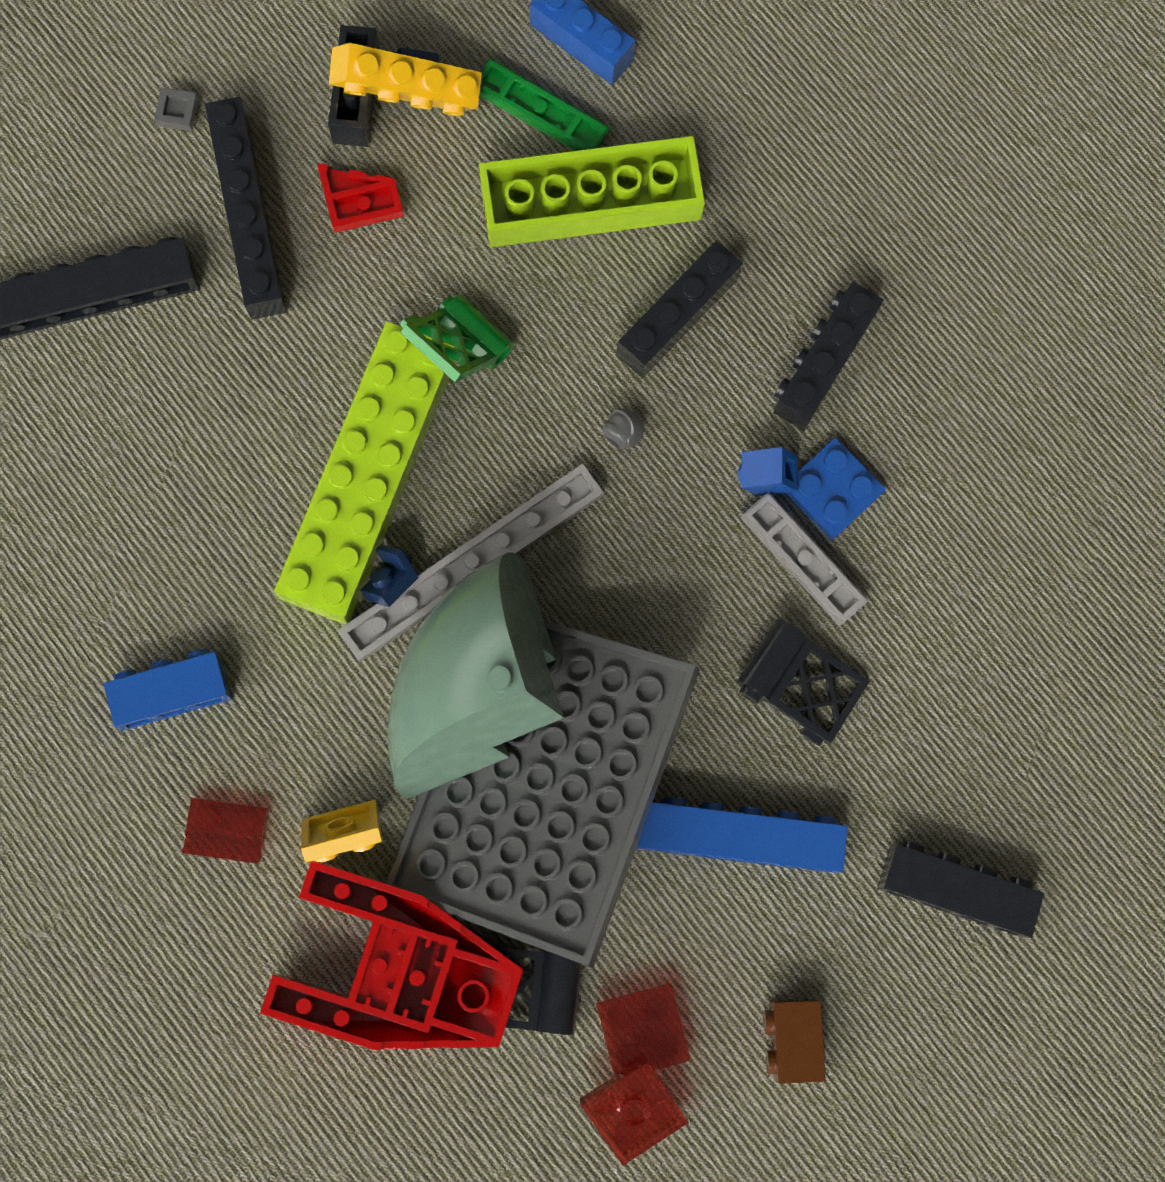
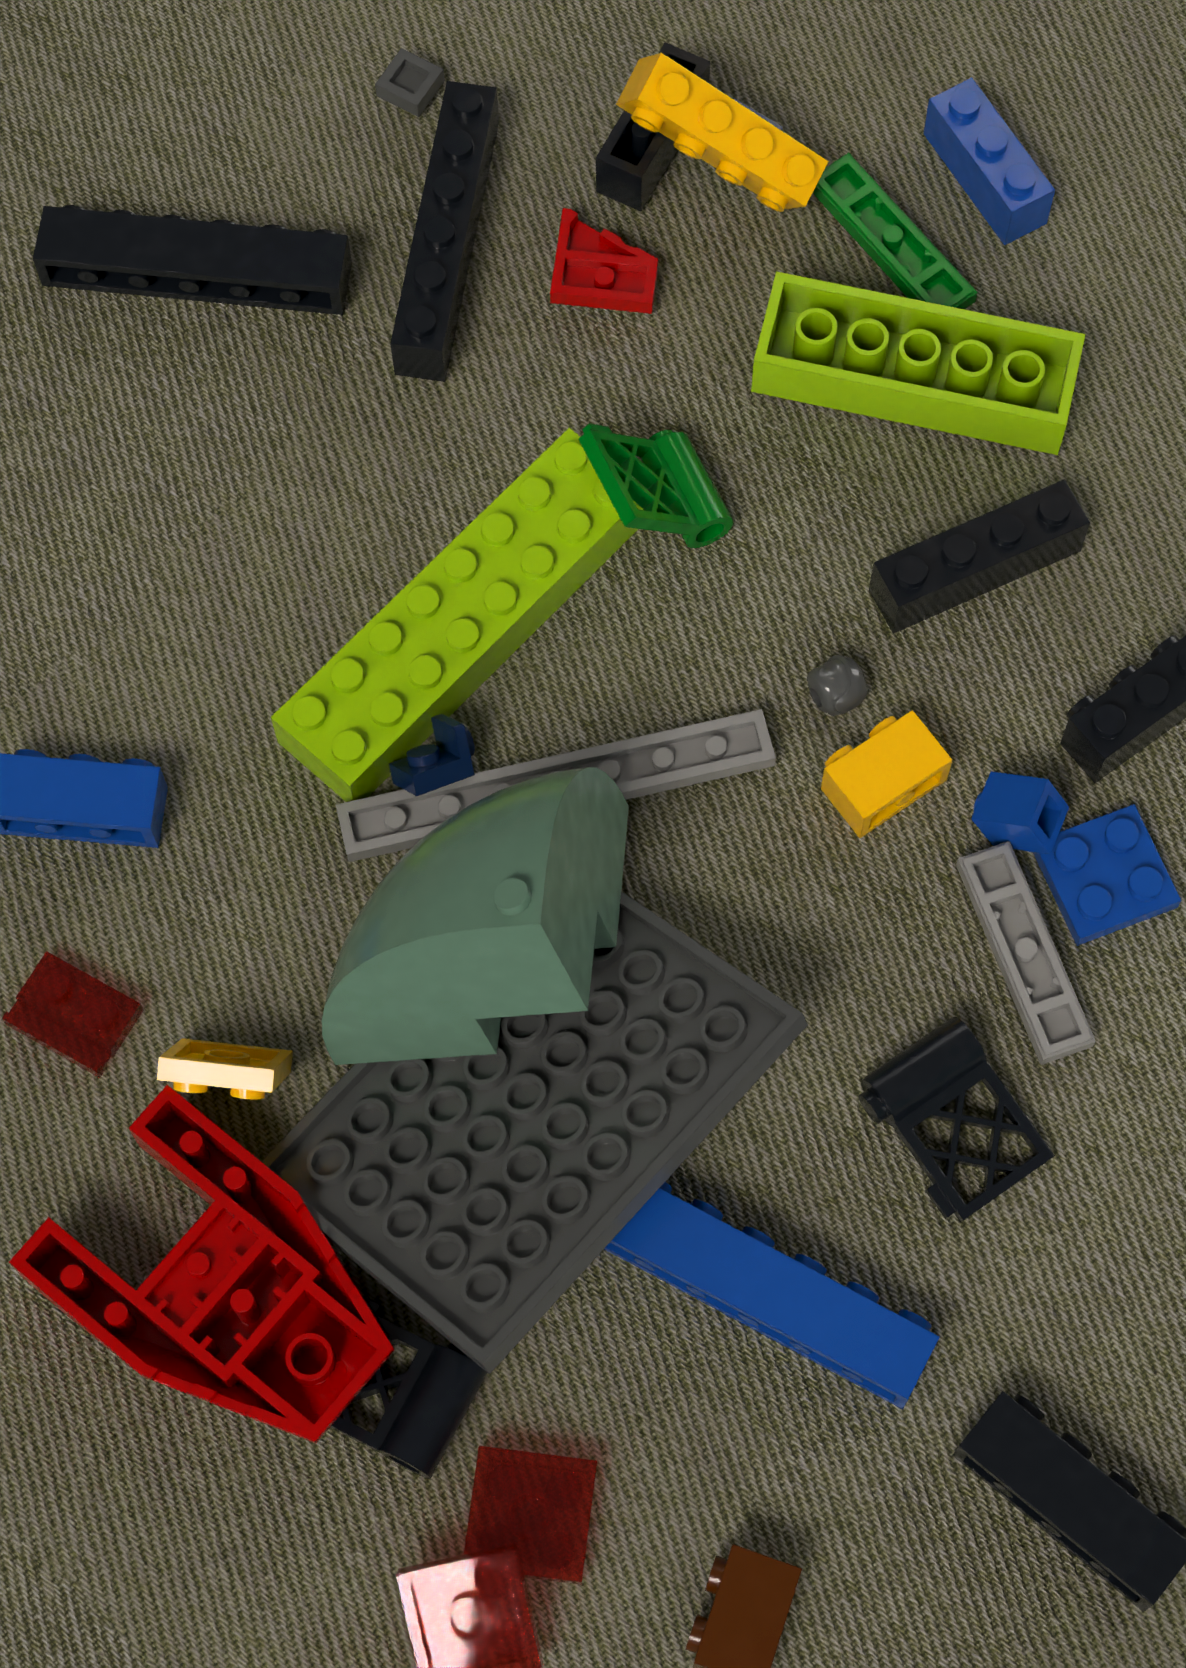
camera: 30 degrees right, 10 degrees down
(675, 475) = (885, 772): none -> yellow brick

